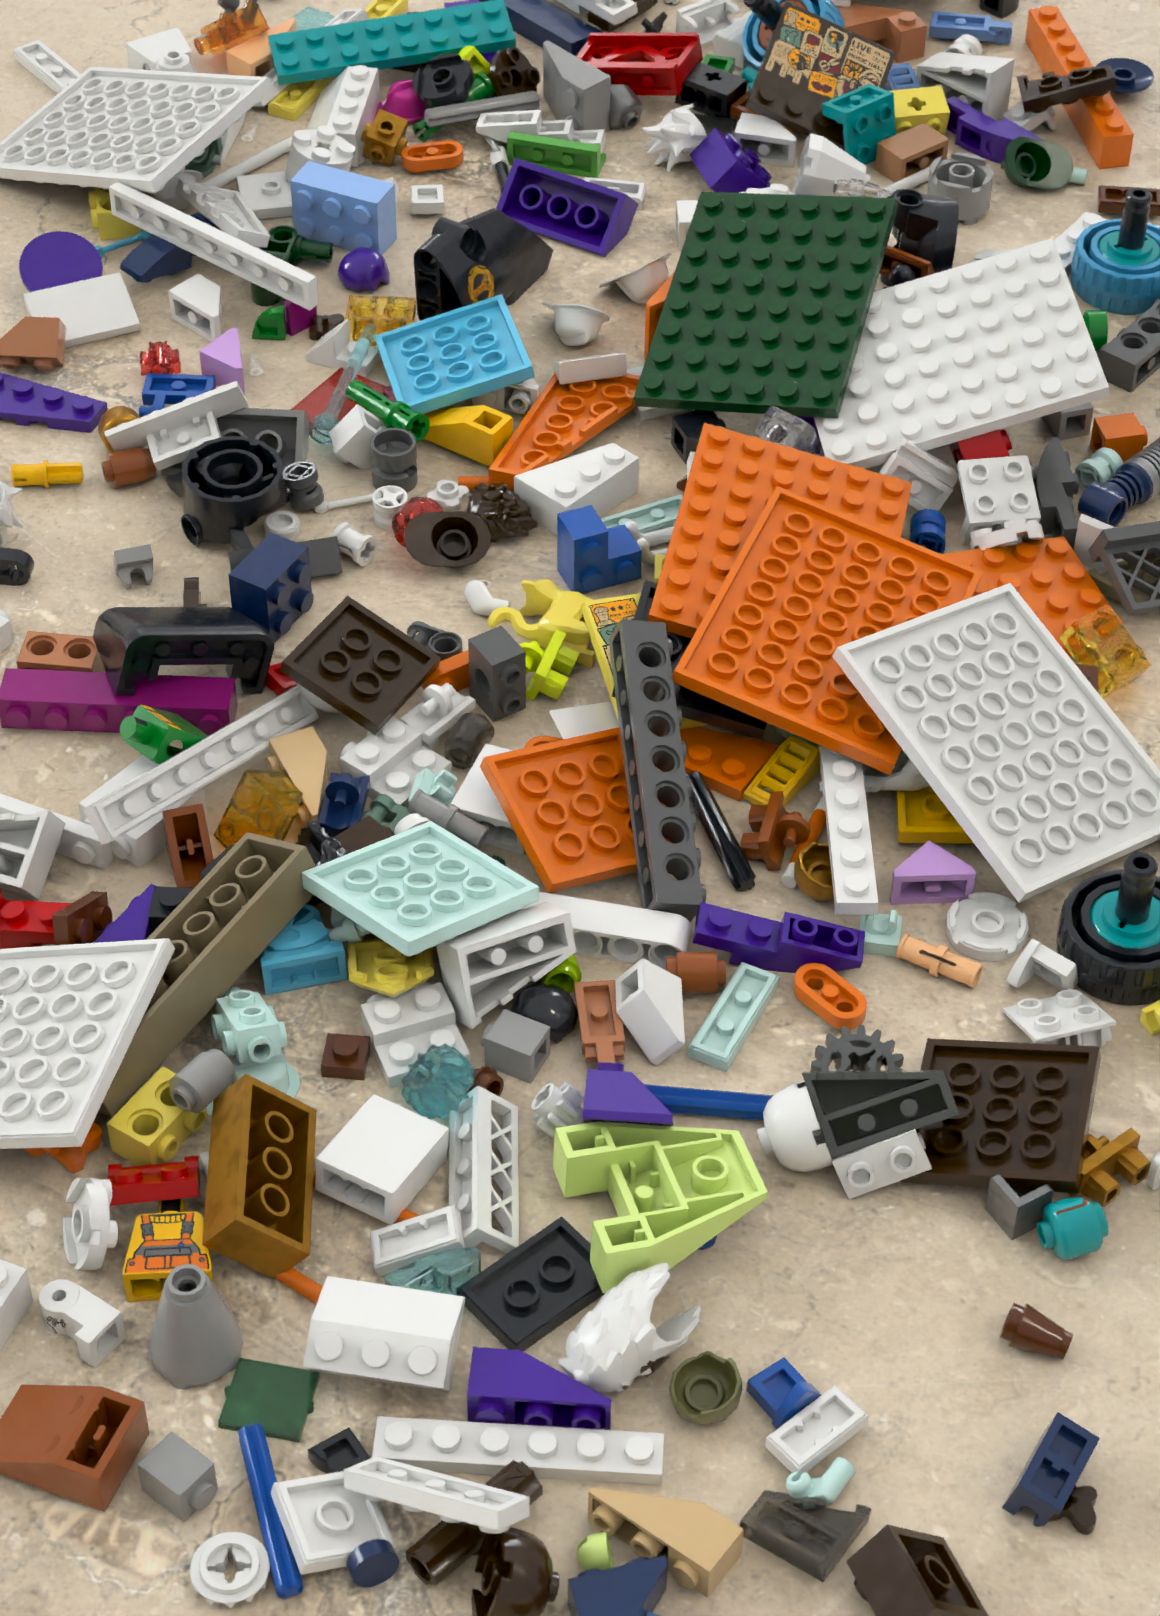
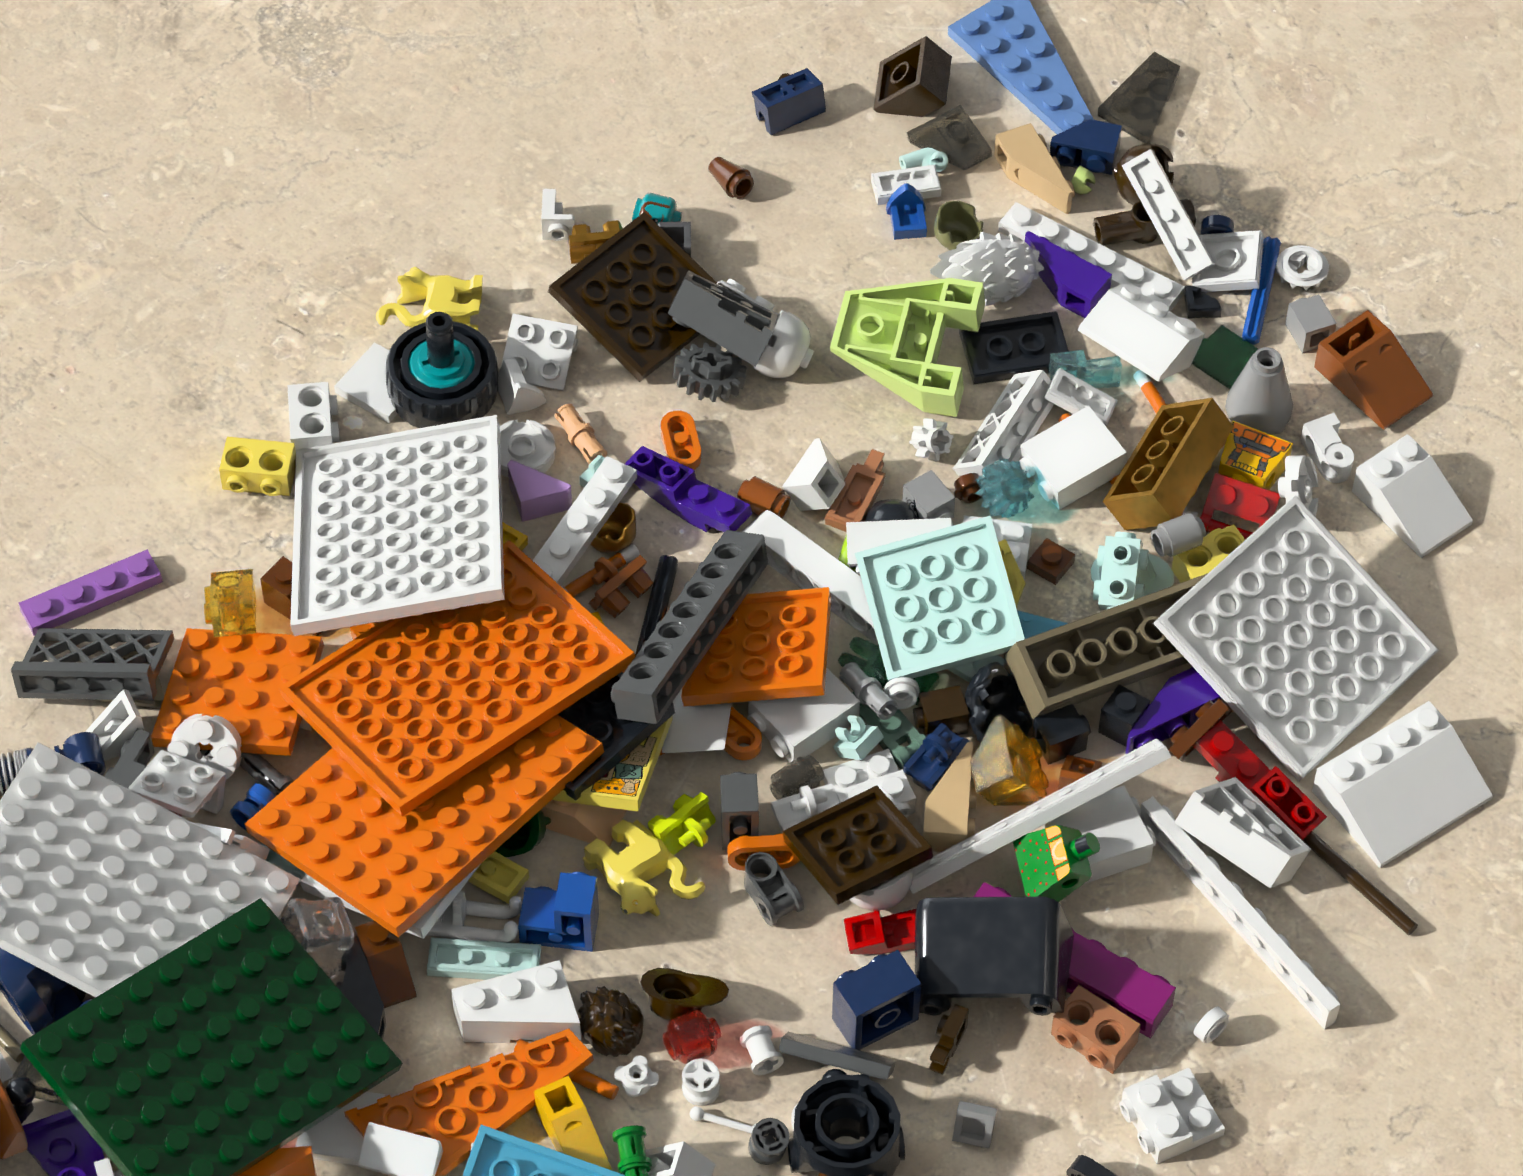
camera: 150 degrees left, 10 degrees up
(394, 459) = (667, 1120): dark grey wheel -> none
(481, 599) = (687, 932): white arm -> none
(621, 1098) = (892, 400): dark purple slope -> none
(711, 1102) = (830, 416): blue axle -> none
(733, 1016) = (761, 461): light aqua tile -> none

